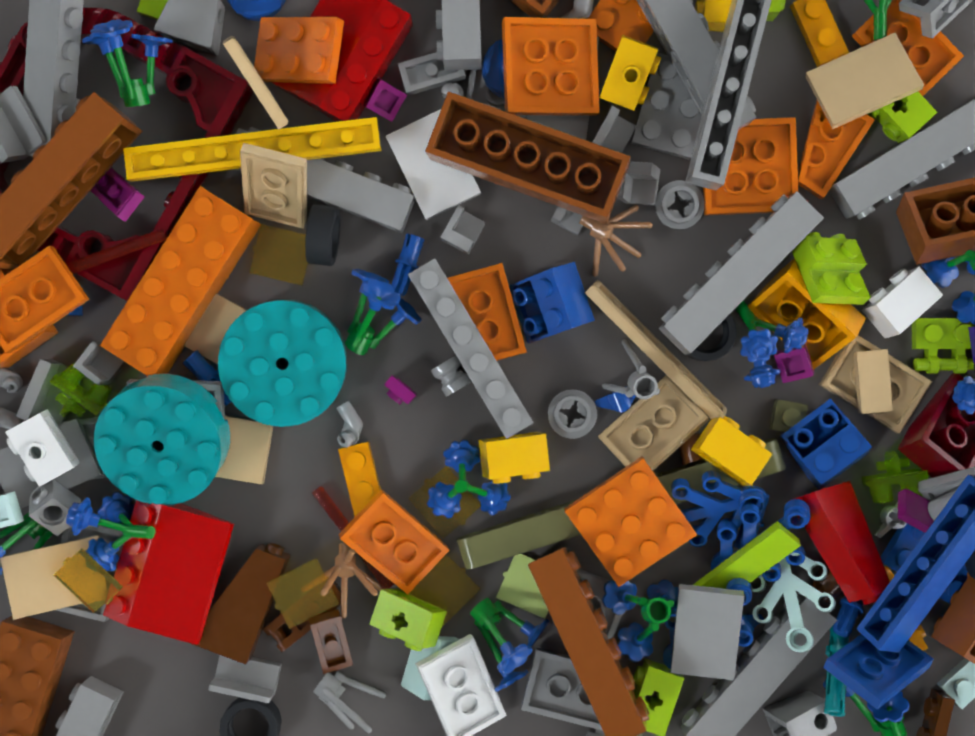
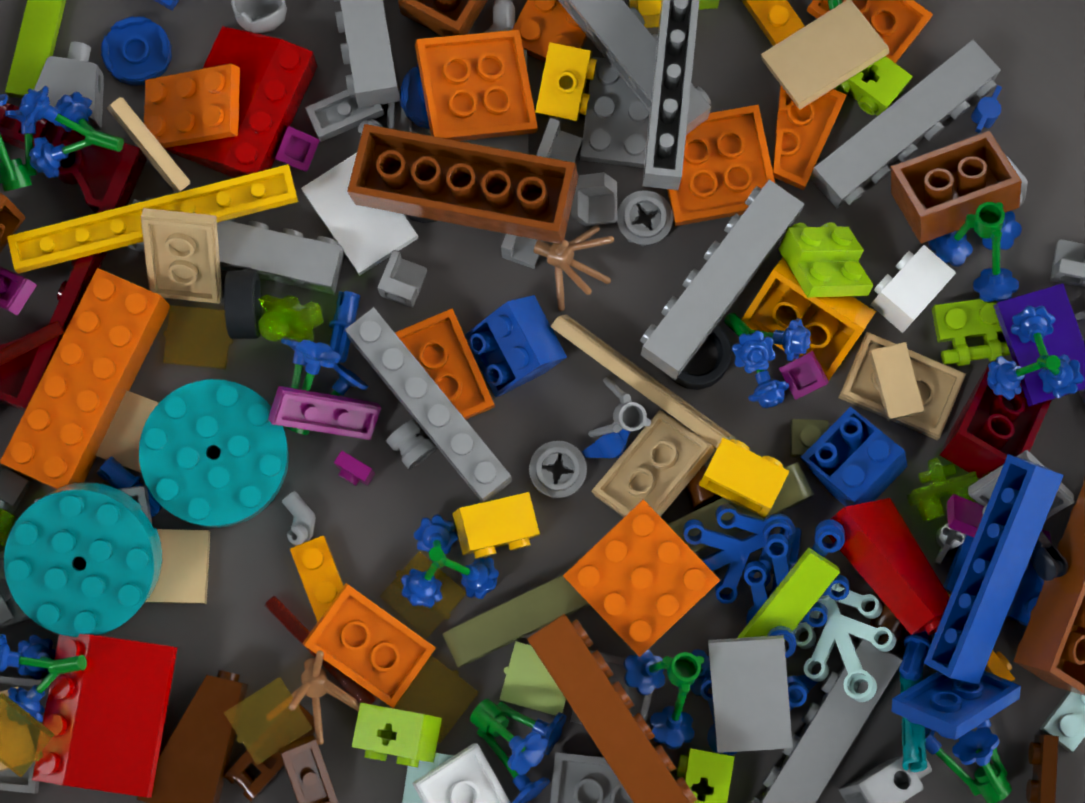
camera: 10 degrees left, 10 degrees down
(188, 44) = (71, 114): none -> blue plant
(360, 253) = (288, 318): none -> clear neon green hips
(380, 341) = (324, 413): none -> magenta tile

